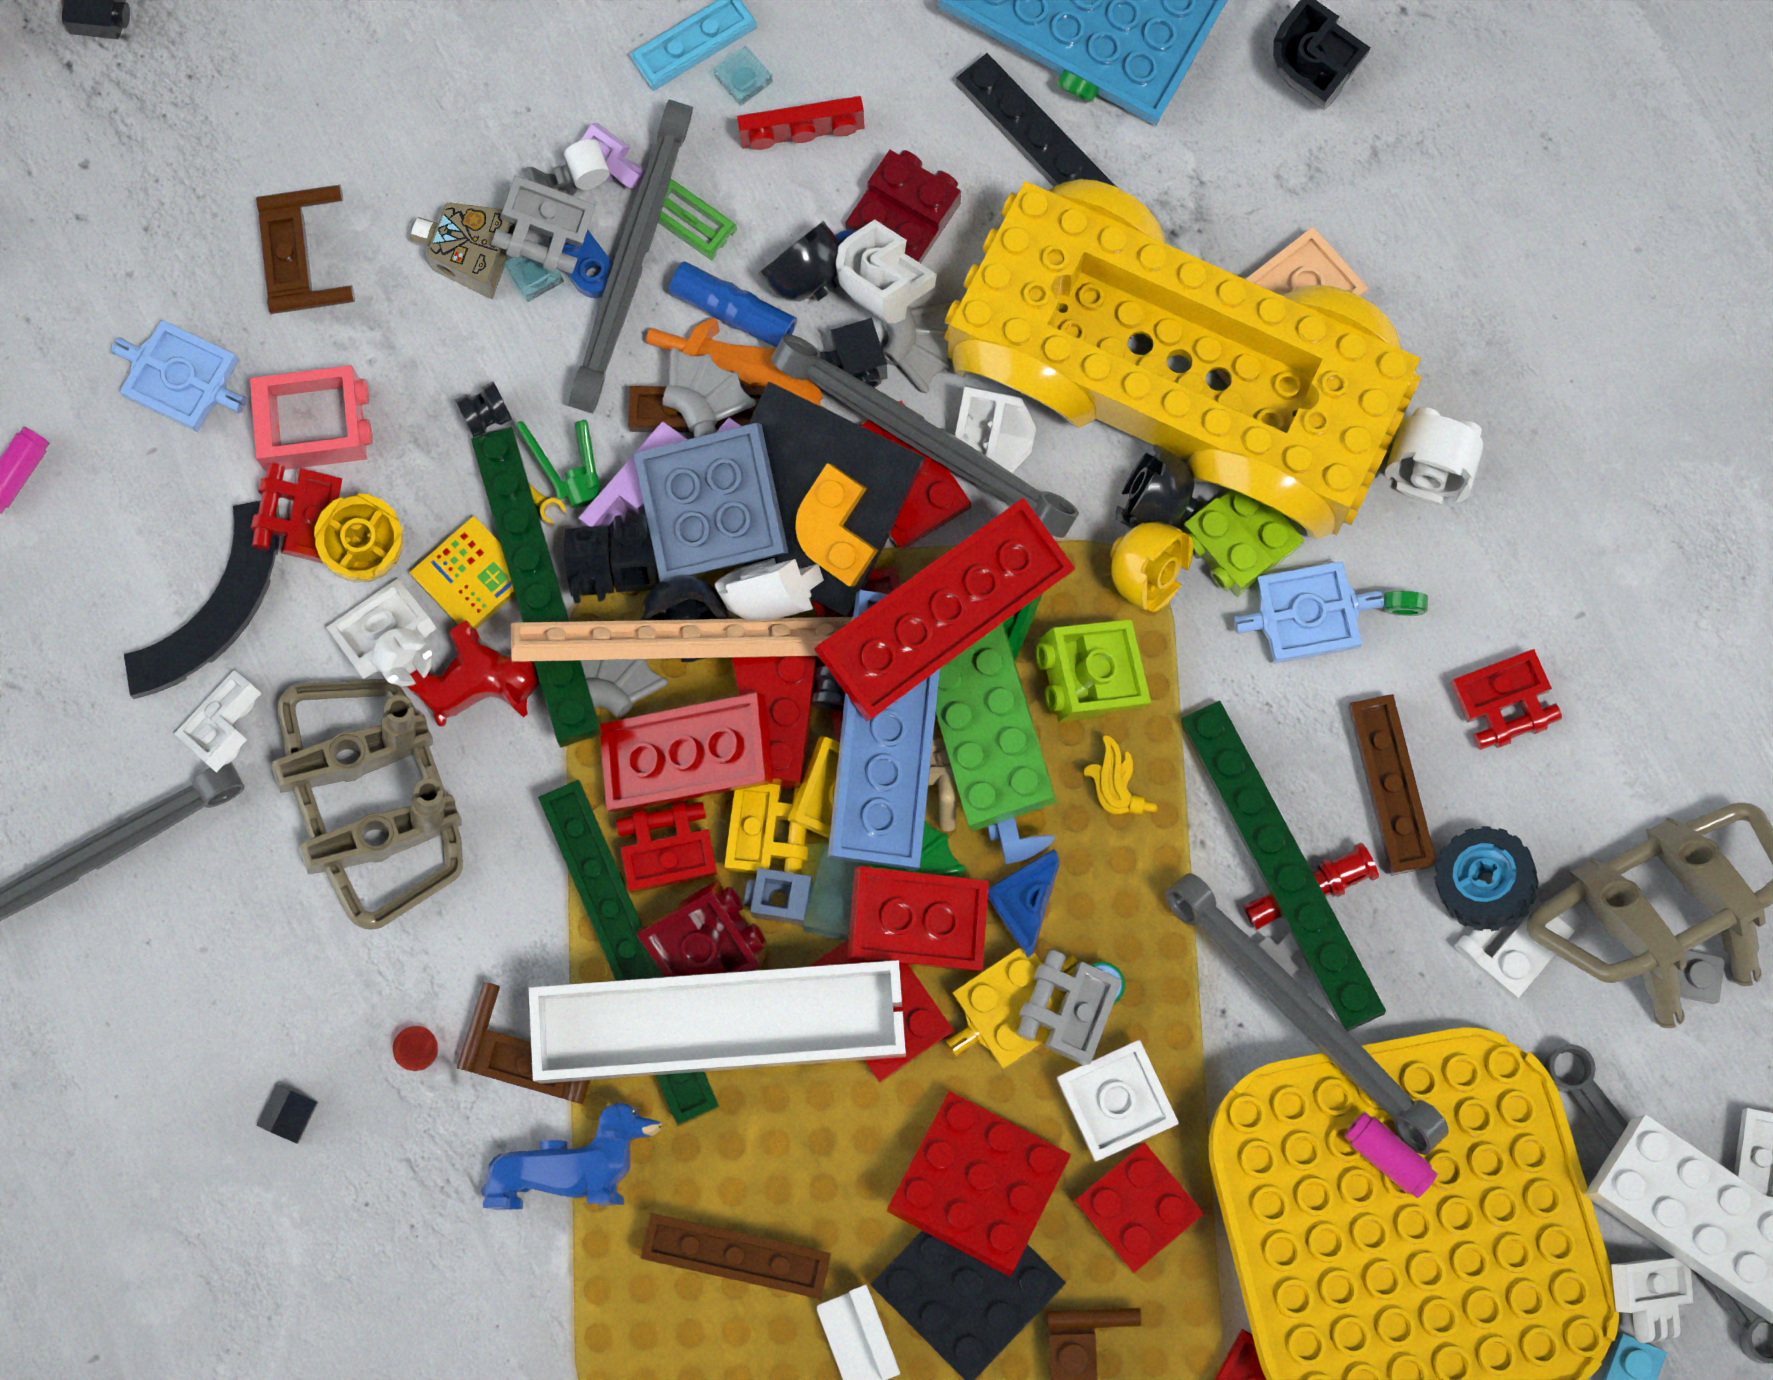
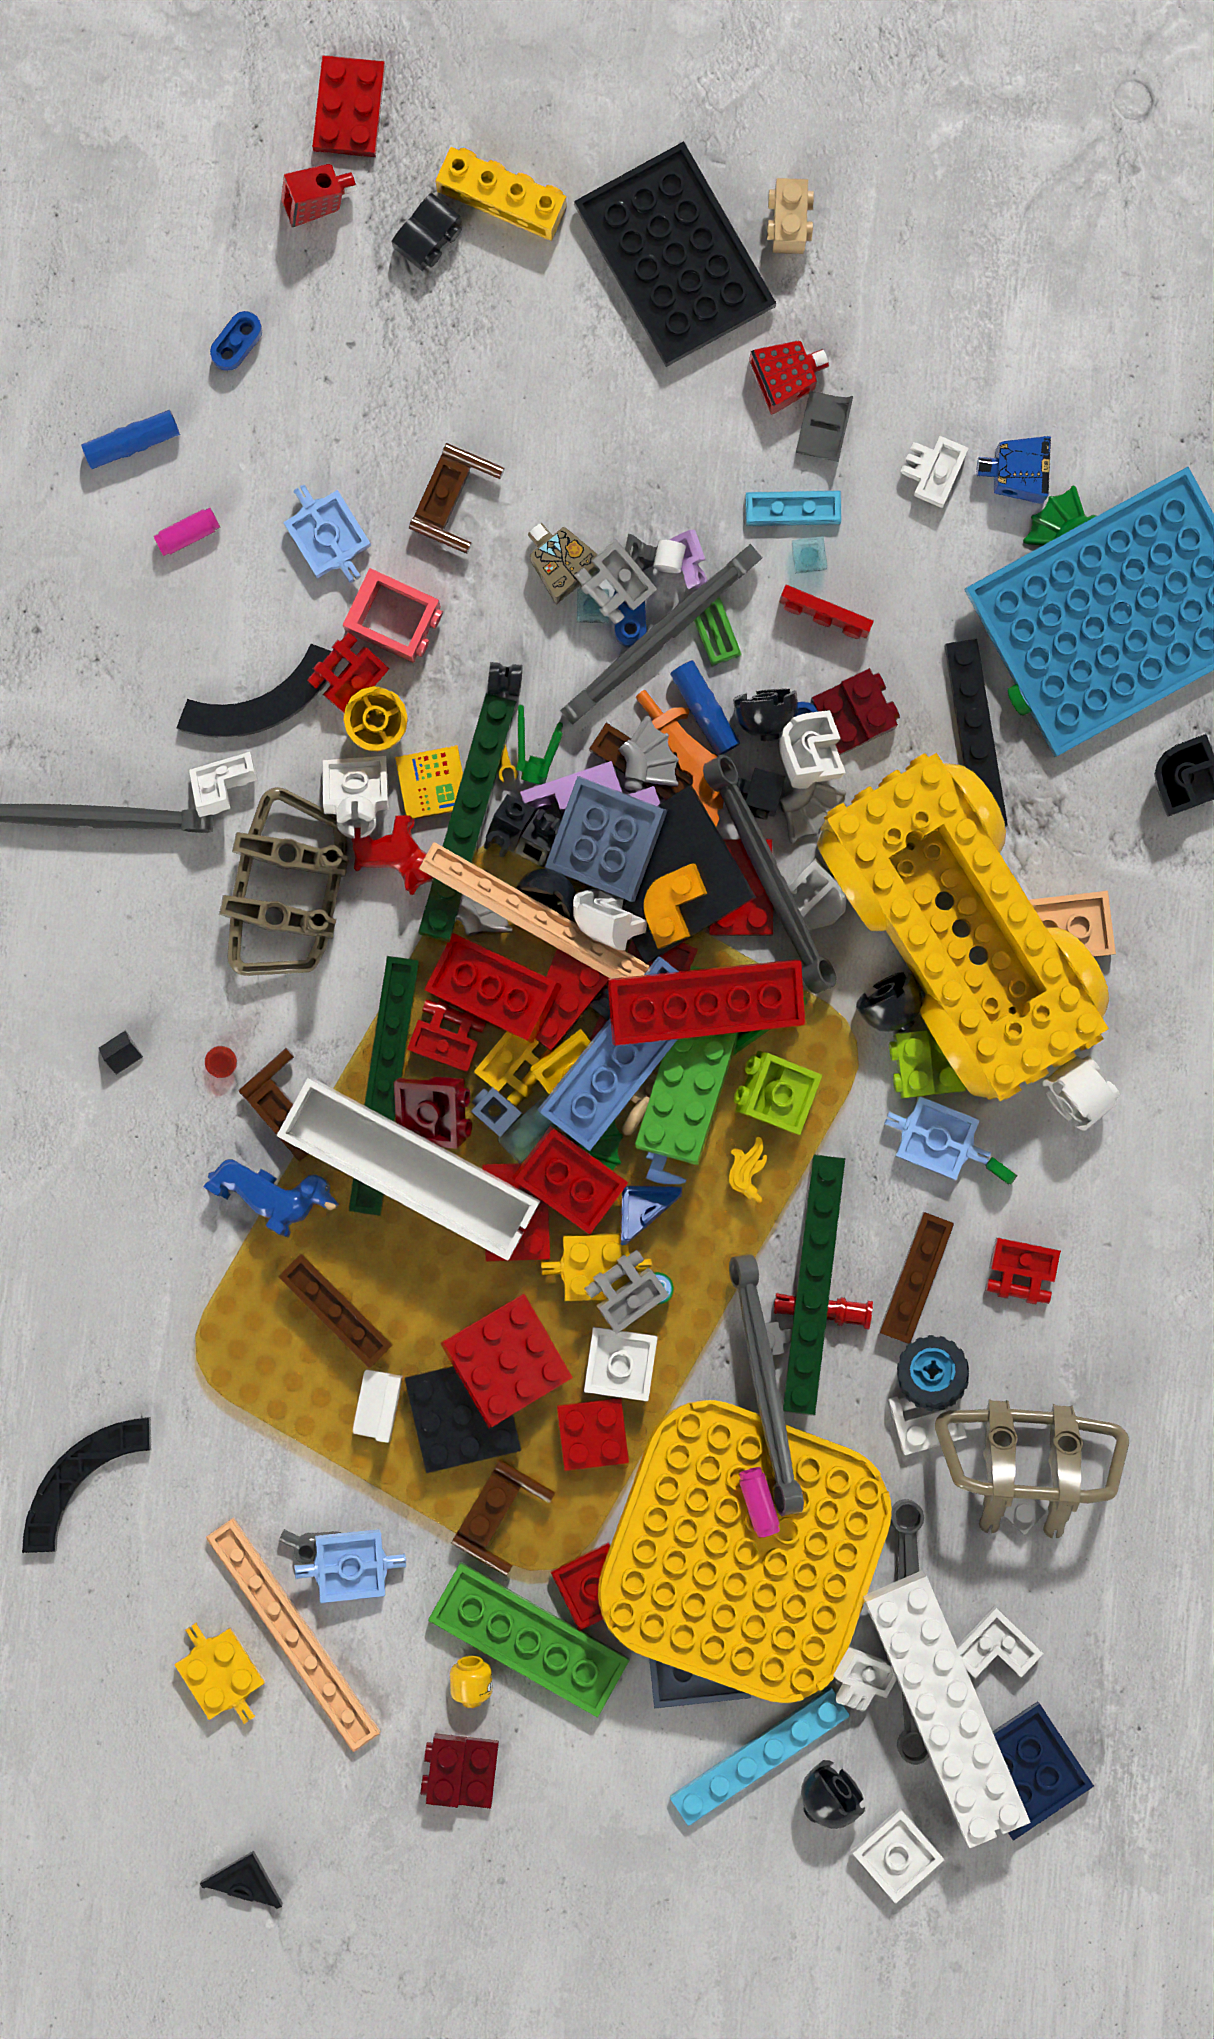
camera: 25 degrees right, 10 degrees up
(1149, 562) = (854, 1047): yellow cylinder -> none

